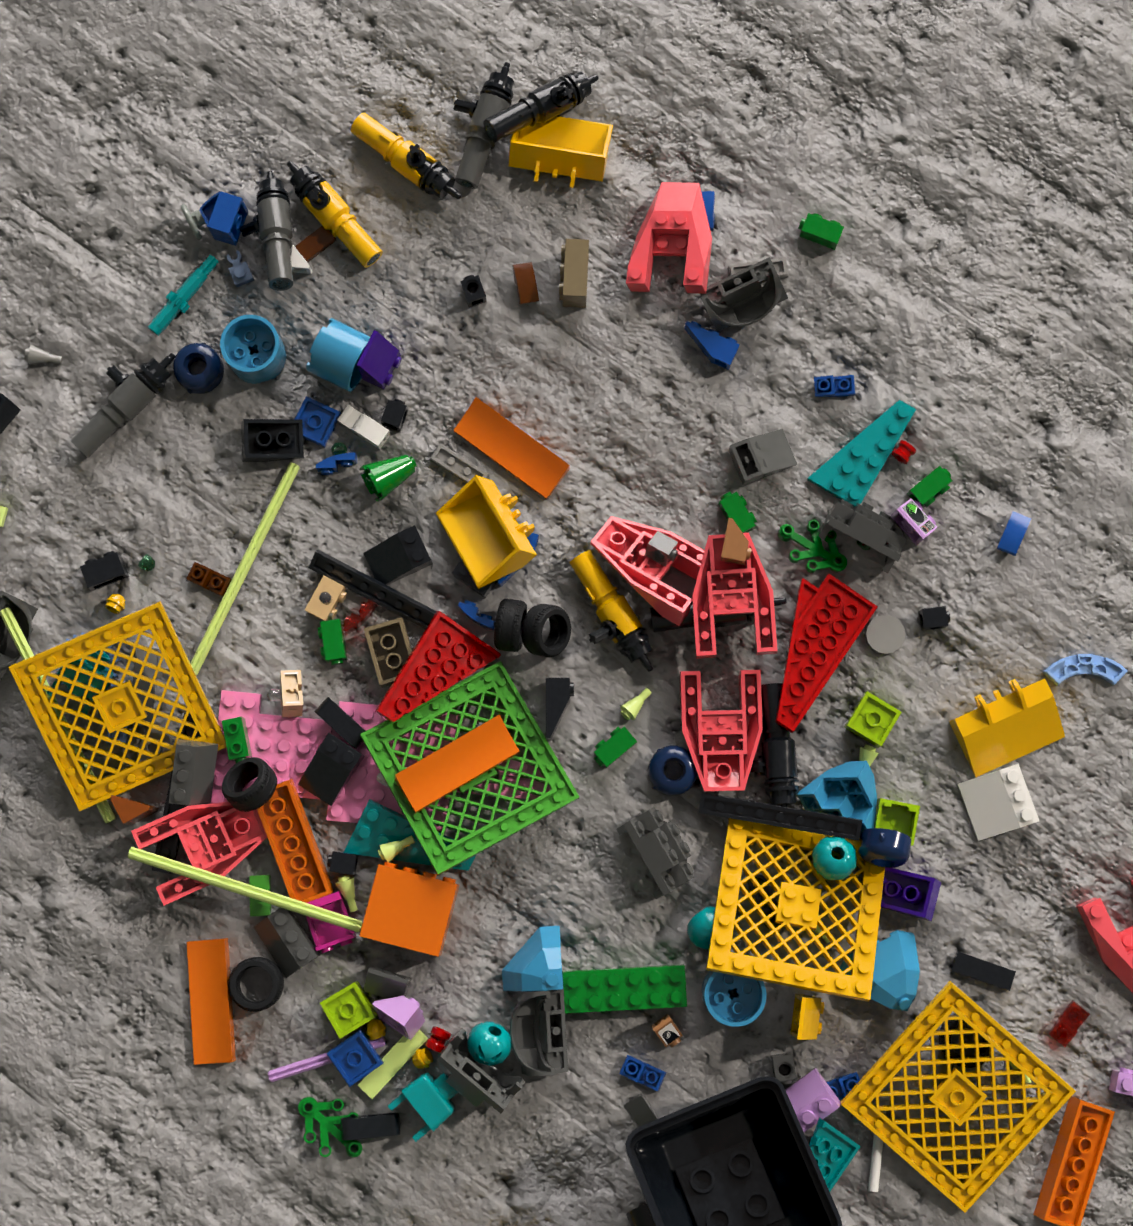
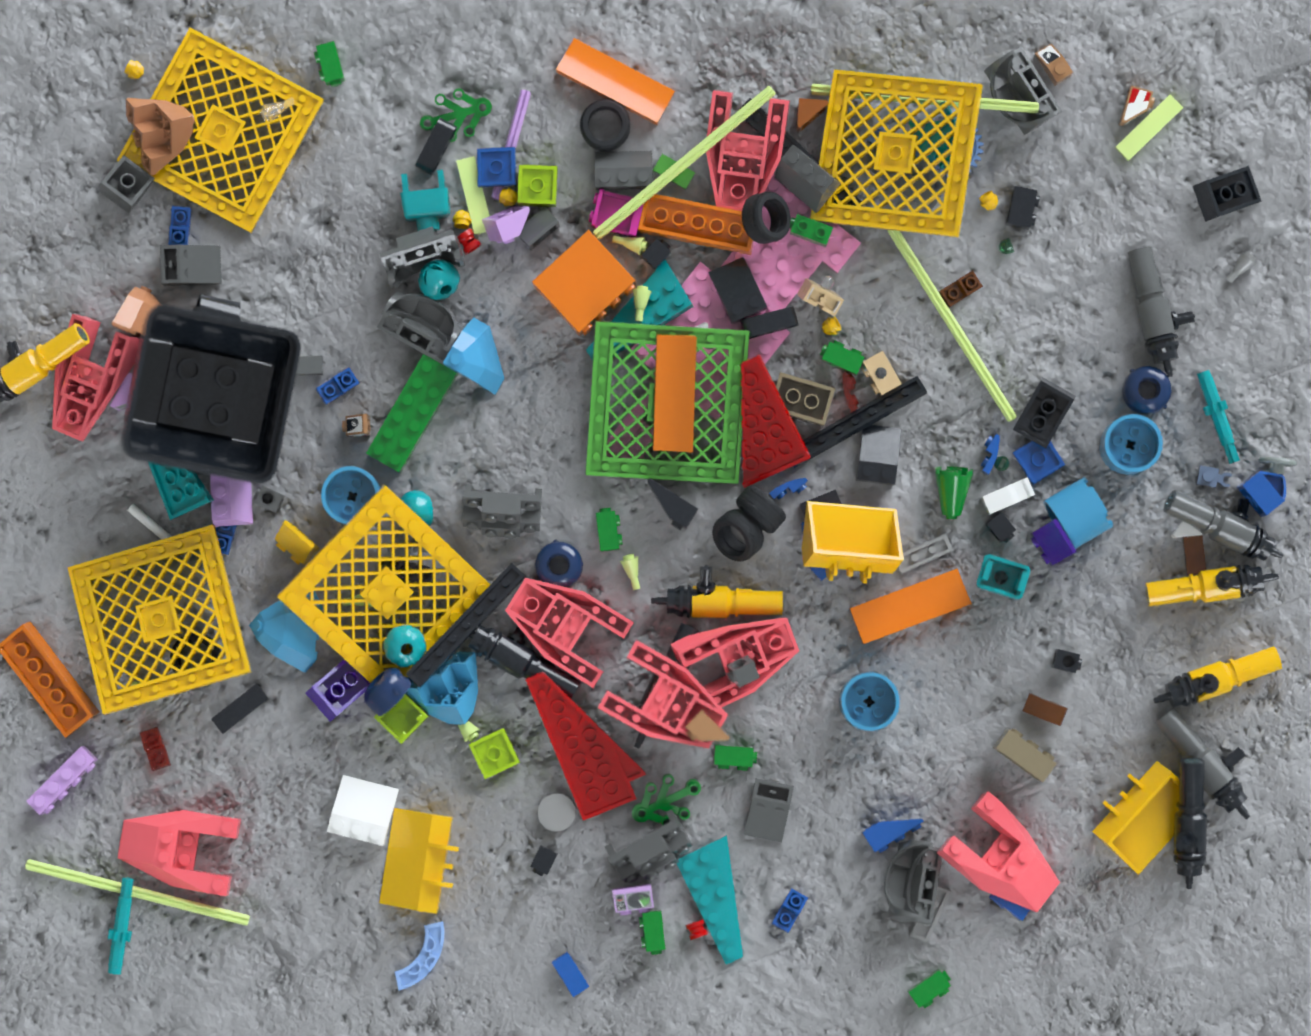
camera: 120 degrees right, 5 degrees up
(311, 669) = (831, 326): none -> yellow plate
(434, 370) = (1016, 573): none -> teal piece
(619, 413) = (880, 712): none -> dark azure brick

